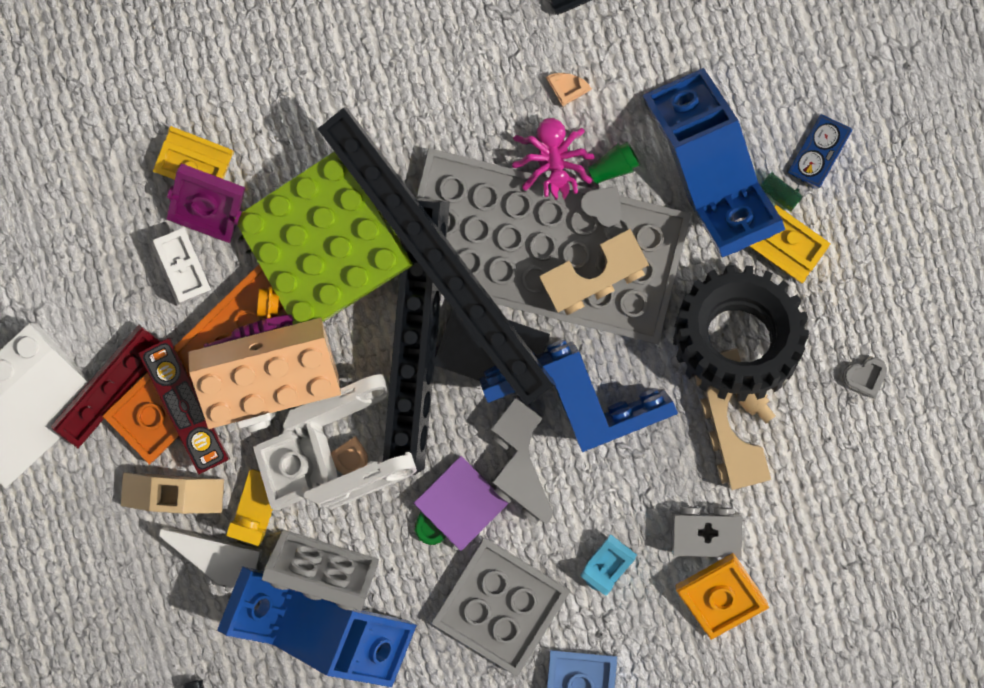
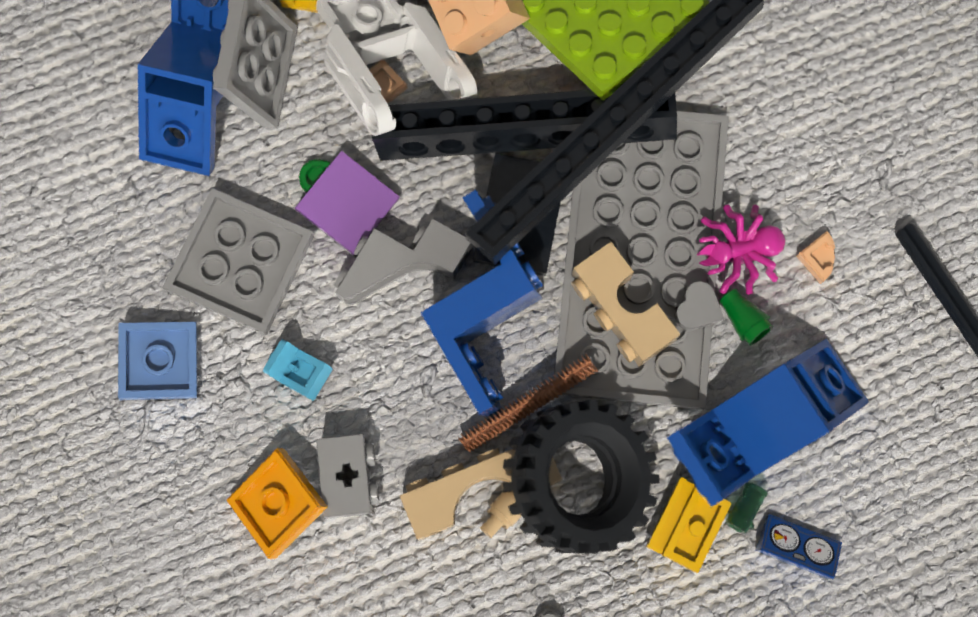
camera: 85 degrees right, 10 degrees down
(666, 367) = (528, 404): none -> nougat axle

